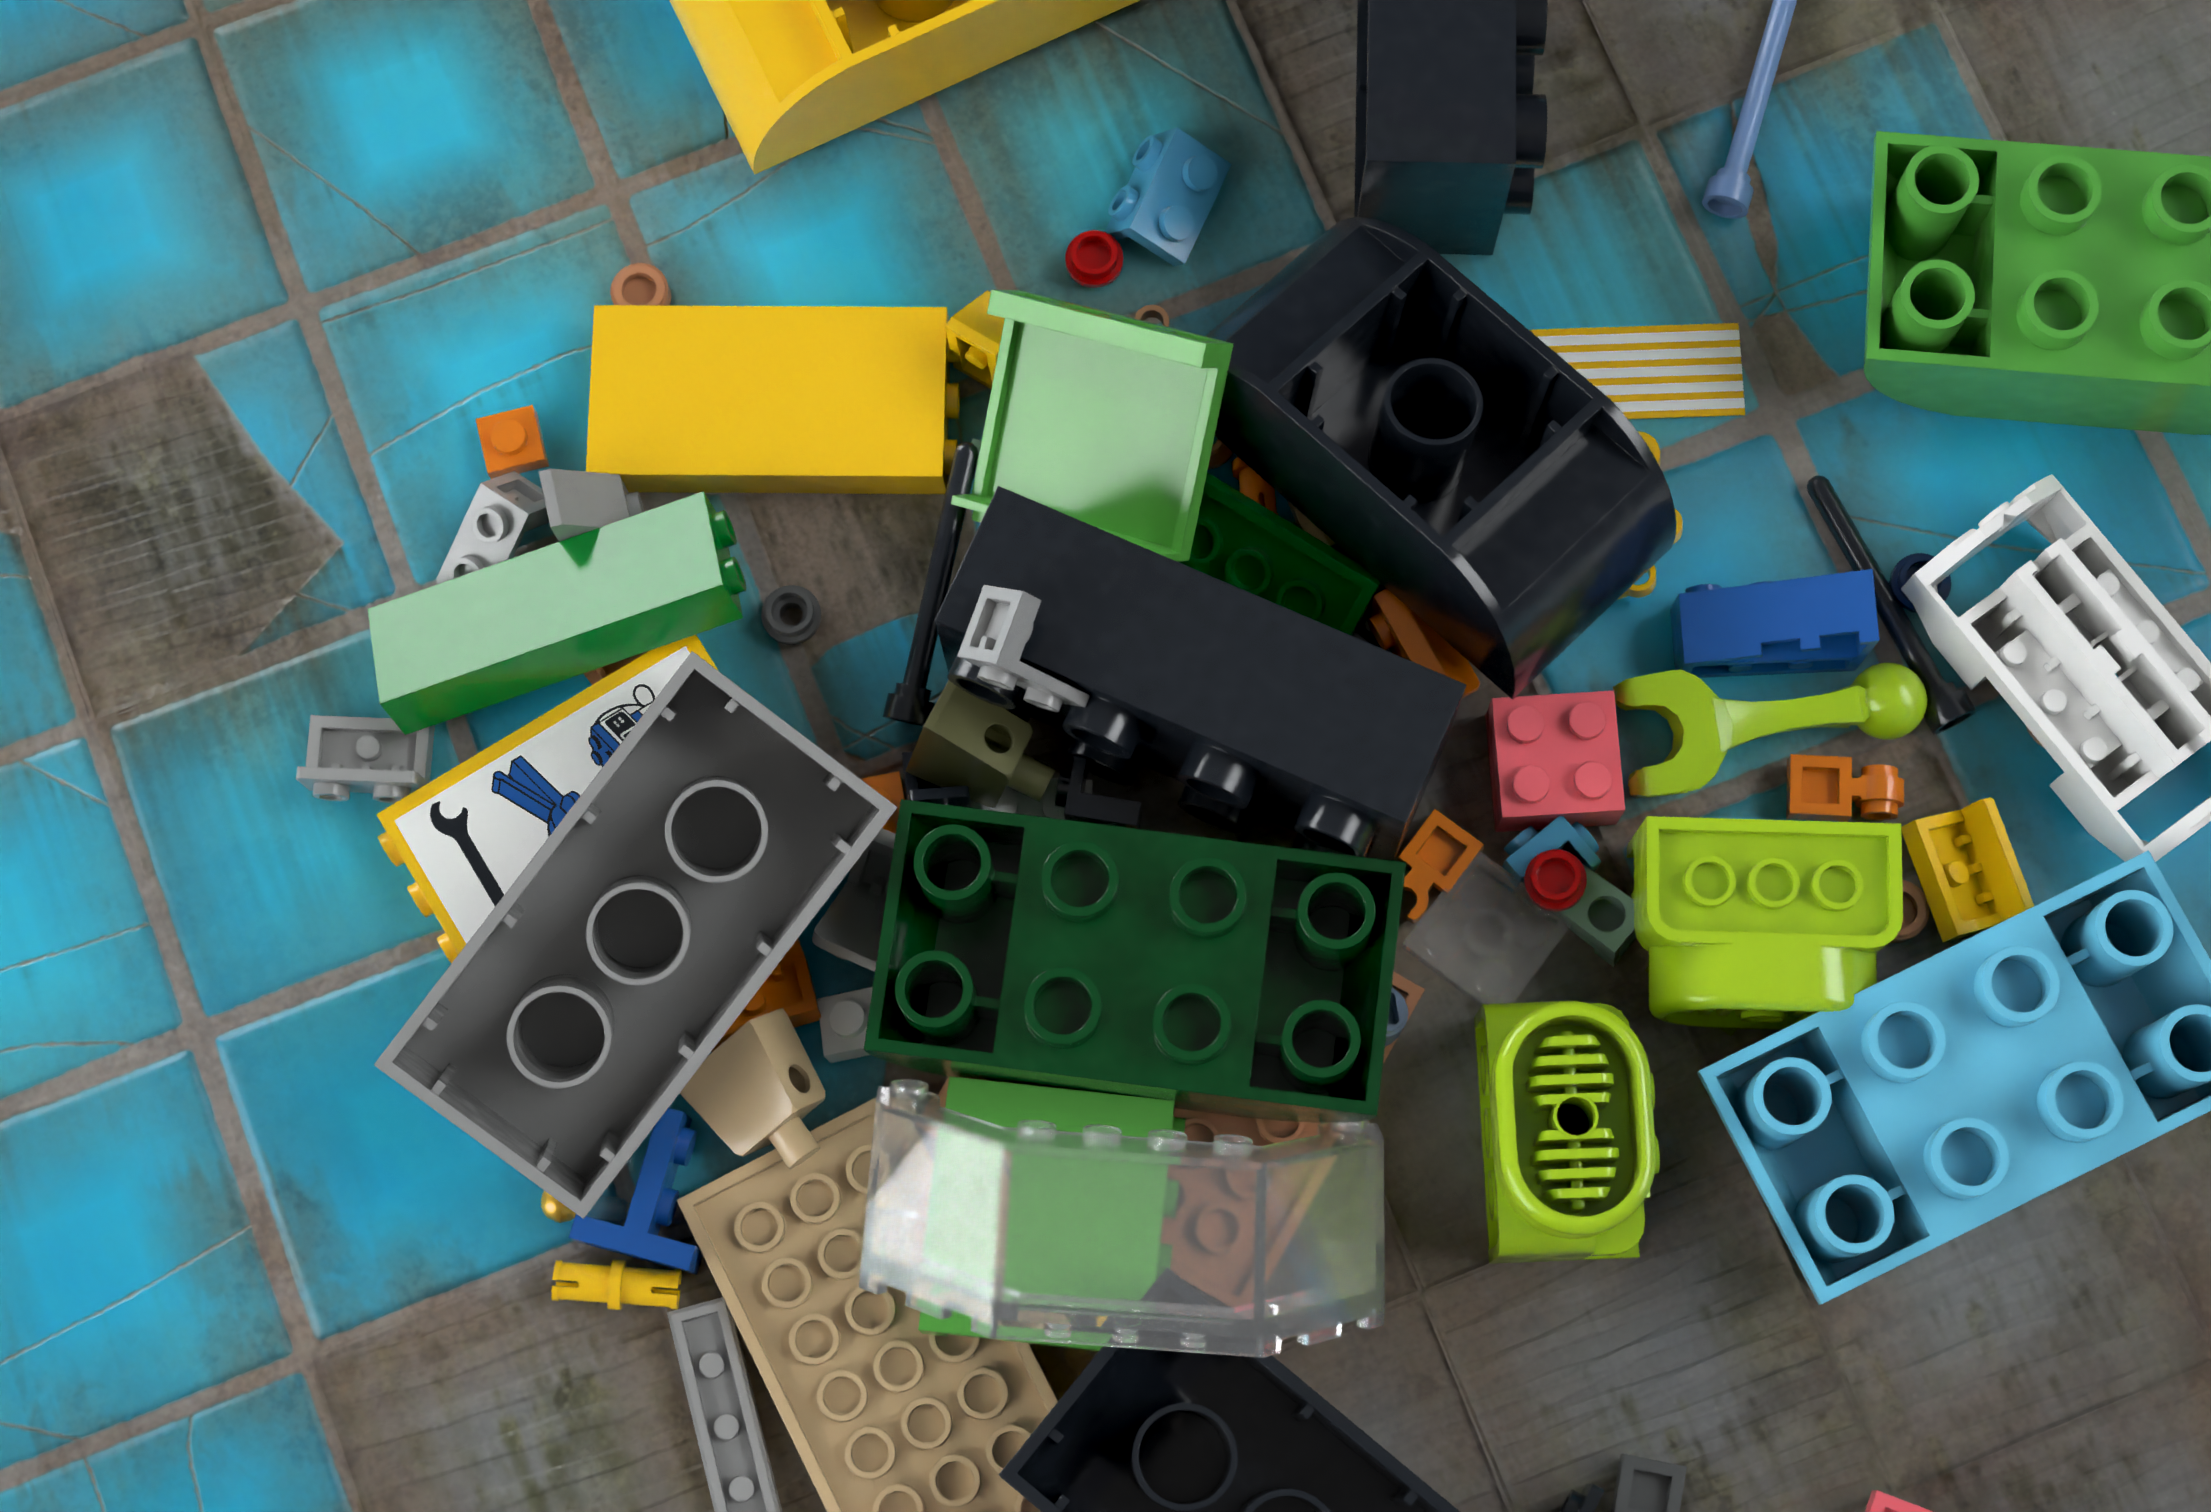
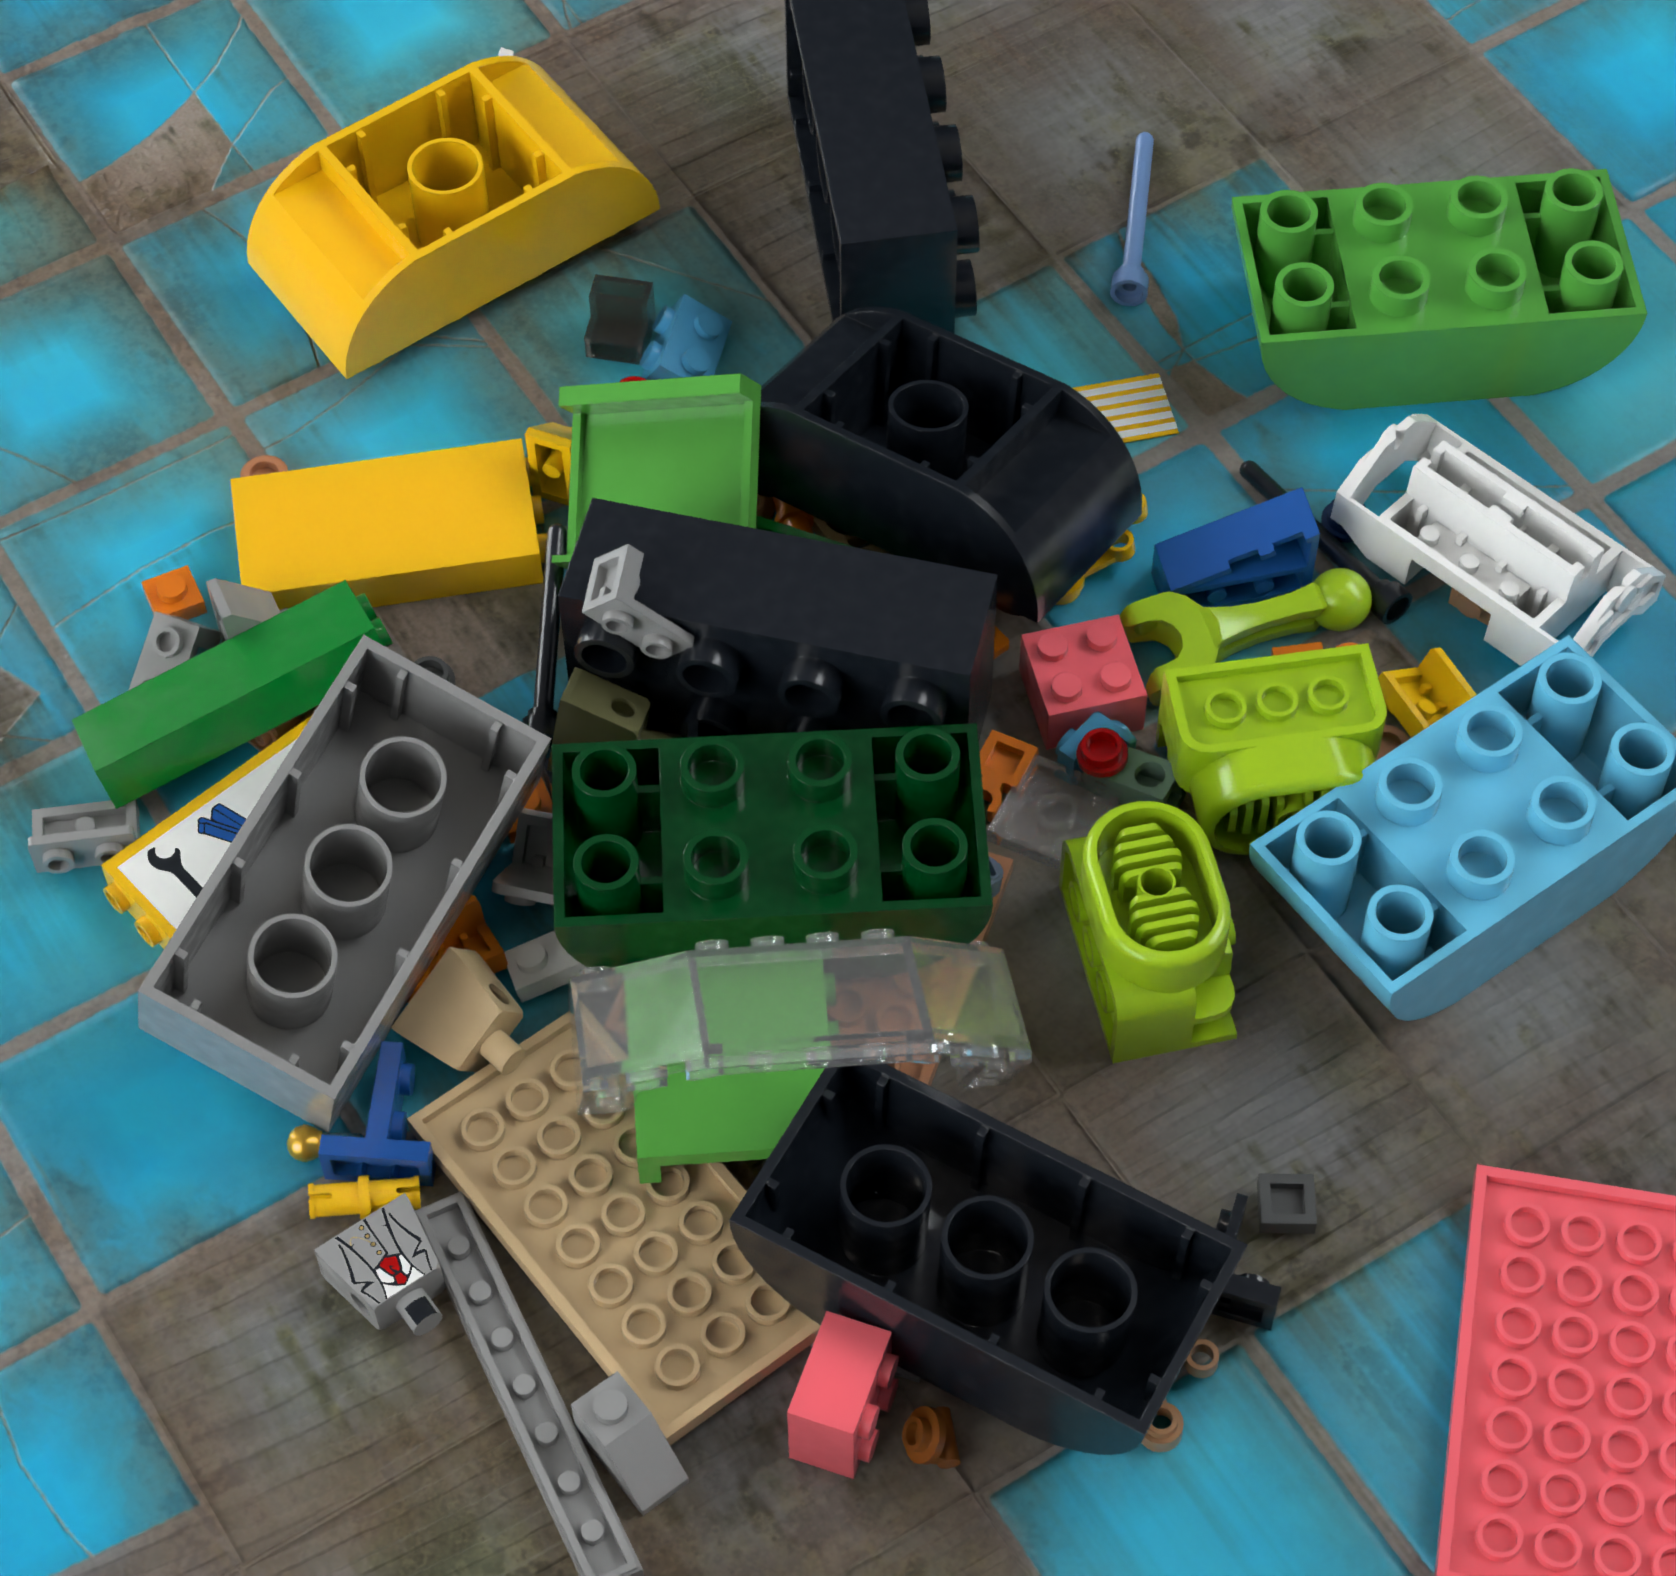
camera: 15 degrees left, 20 degrees down
(628, 1383) = (386, 1268): none -> light grey torso
(1095, 144) = (619, 319): none -> clear smoke piece

